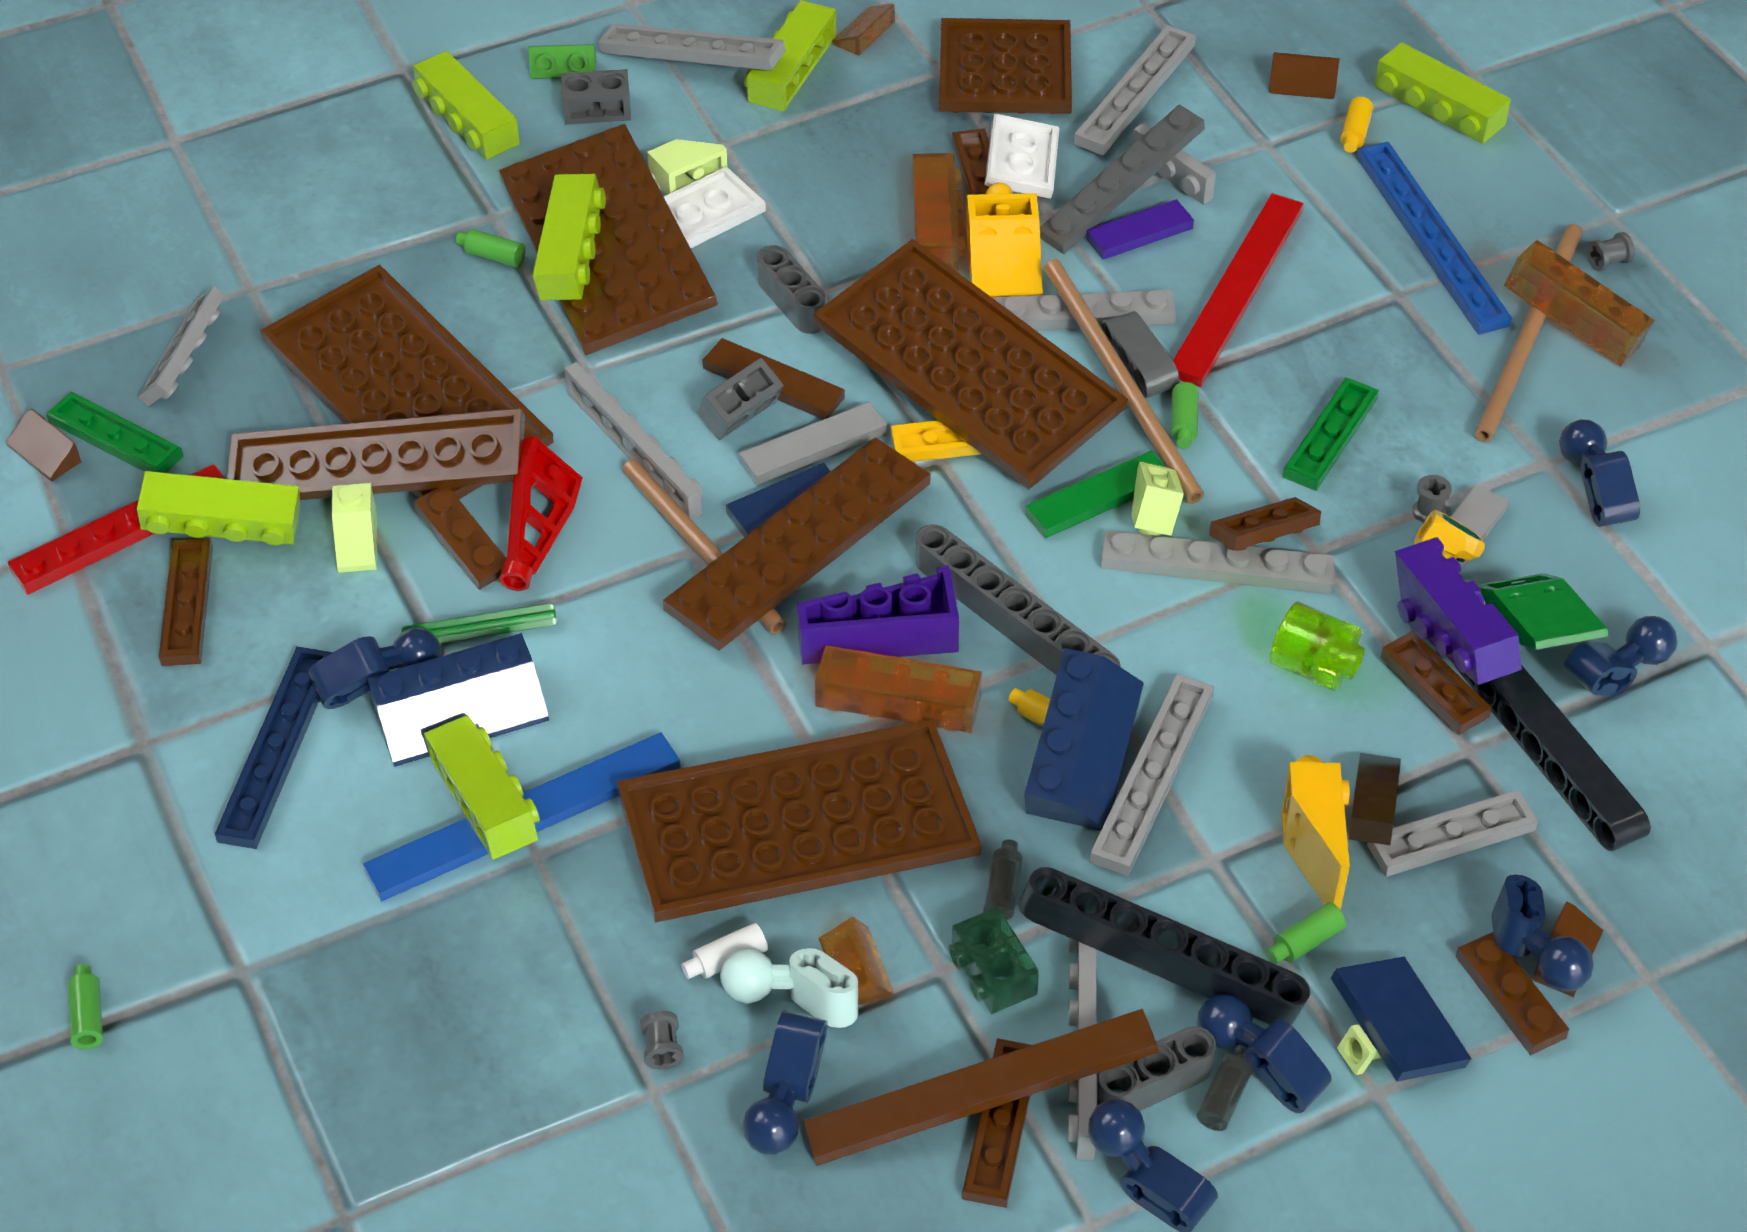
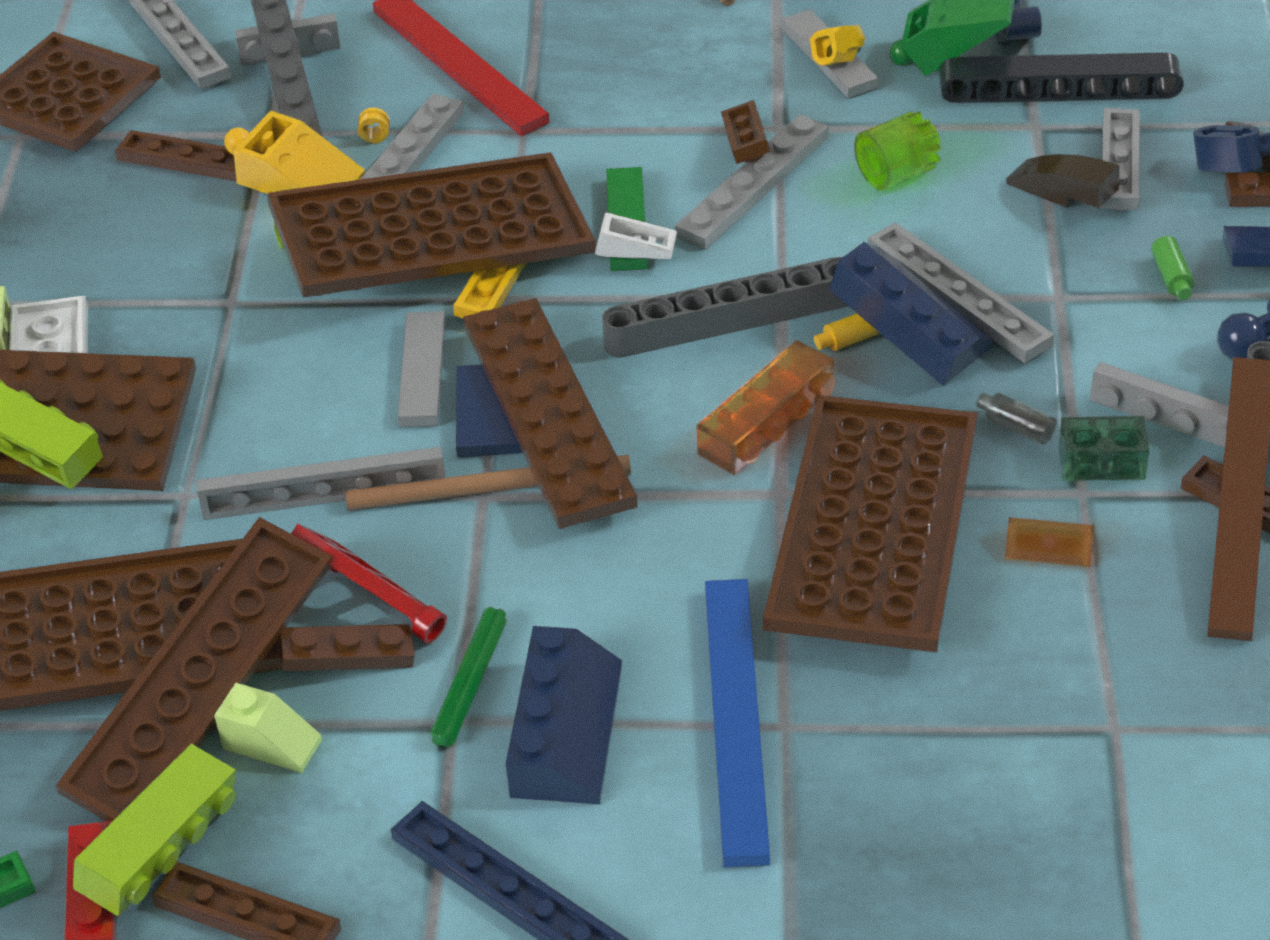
camera: 60 degrees left, 5 degrees down
(345, 672) = (479, 764): dark blue beam -> none
(482, 786) = (697, 724): lime brick -> none
(661, 1040) = (1070, 694): dark grey bush -> none
(711, 957) = (992, 619): white cylinder -> none
(740, 398) = (341, 386): dark grey brick -> none
(790, 287) = (221, 313): dark grey beam -> none
(790, 1076) = (1157, 614): dark blue beam -> none
(799, 388) = (317, 367): reddish brown tile -> none
(813, 977) = (1066, 568): light aqua beam -> none
(888, 621) = (689, 382): dark purple wedge -> none
(937, 206) = (207, 191): clear orange brick -> none
(1022, 155) = (188, 118): white tile -> none
(1055, 482) = (634, 239): none -> white slope
(1097, 271) = (377, 133): none -> yellow bush
(1123, 380) = (498, 151): medium nougat piece -> none
(1139, 229) = (340, 89): dark purple tile -> none
(1141, 353) = (491, 136): dark grey beam -> none
(1156, 499) = (672, 179): yellowish green slope -> none
(1161, 945) = (1158, 335): black beam -> none
(1184, 414) = (580, 137): bright green cylinder -> none
(1317, 825) = (1091, 212): yellow slope -> none
(1330, 434) = (663, 73): green tile -> none
(1432, 493) = (782, 43): dark grey bush -> none
(1436, 682) = (970, 110): reddish brown plate -> none
(1454, 613) = (933, 60): dark purple wedge -> none

